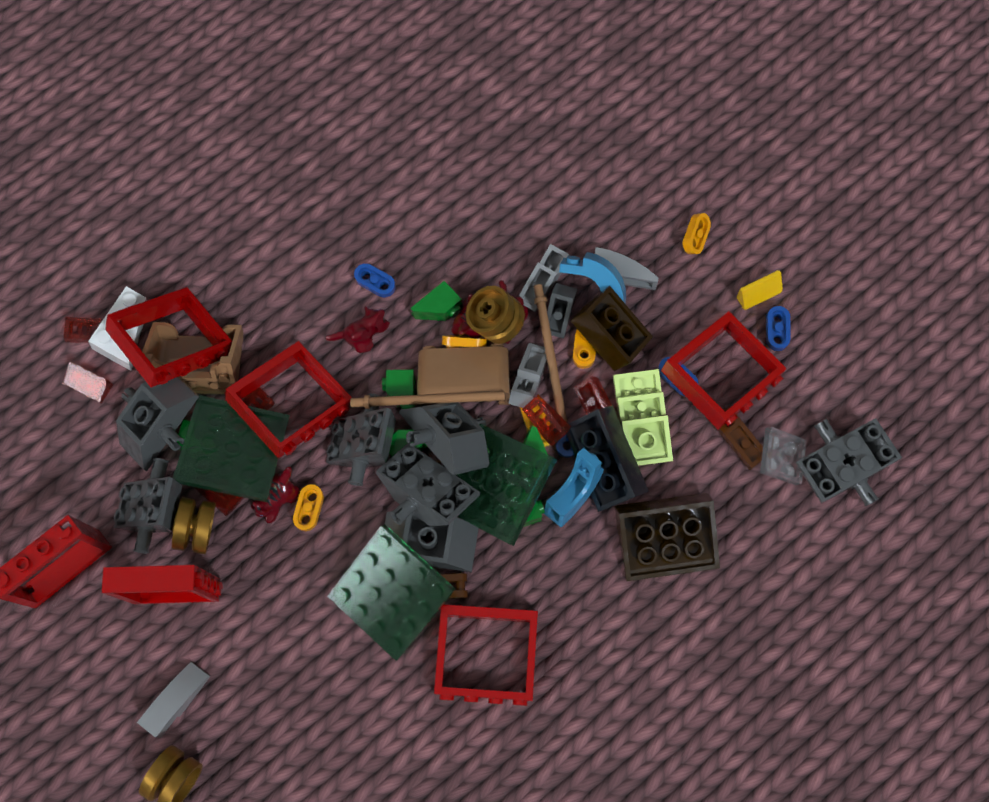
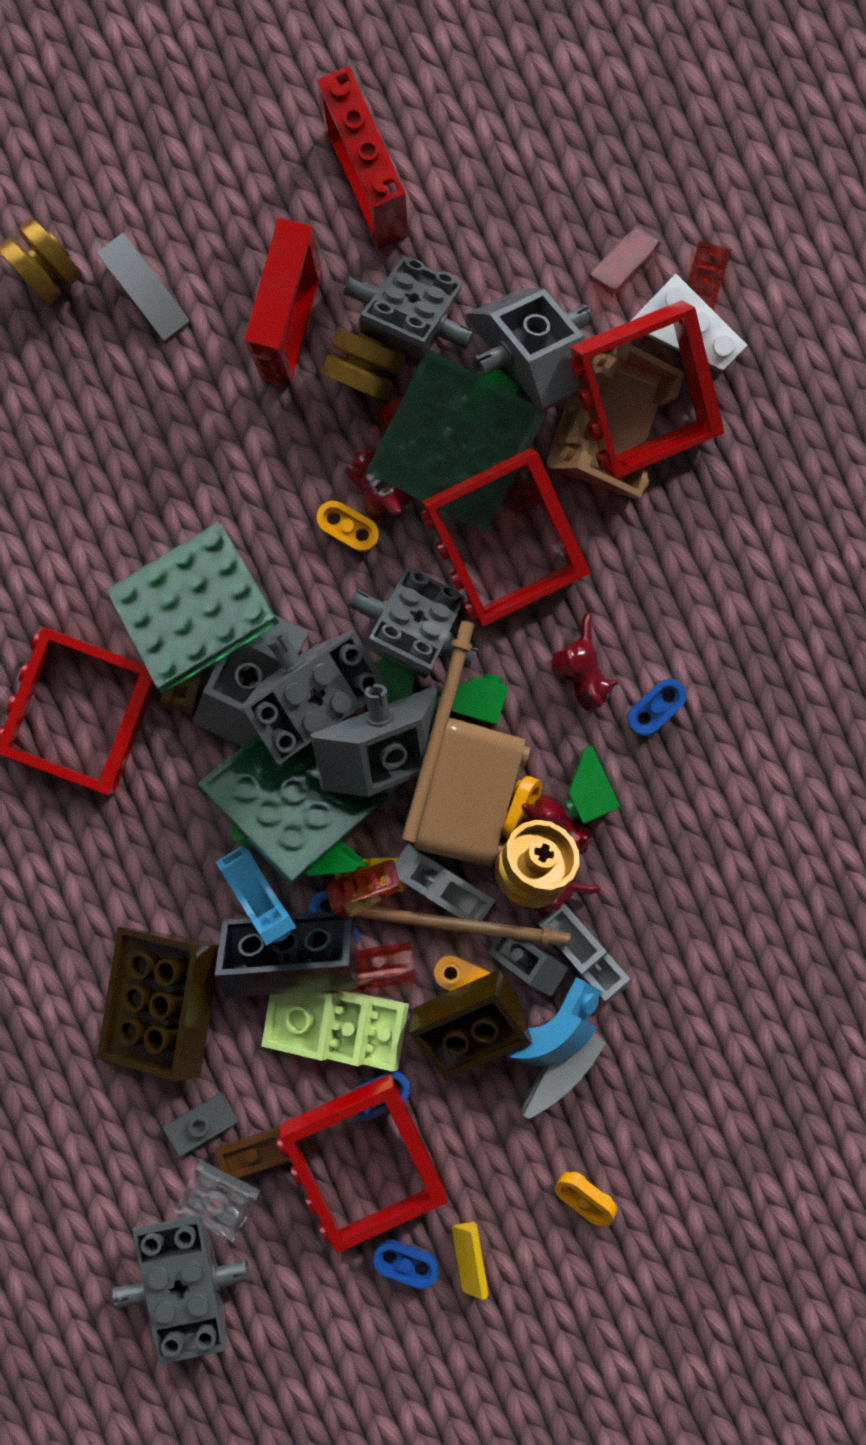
camera: 100 degrees right, 15 degrees up
(738, 485) = (200, 1124): none -> dark grey plate

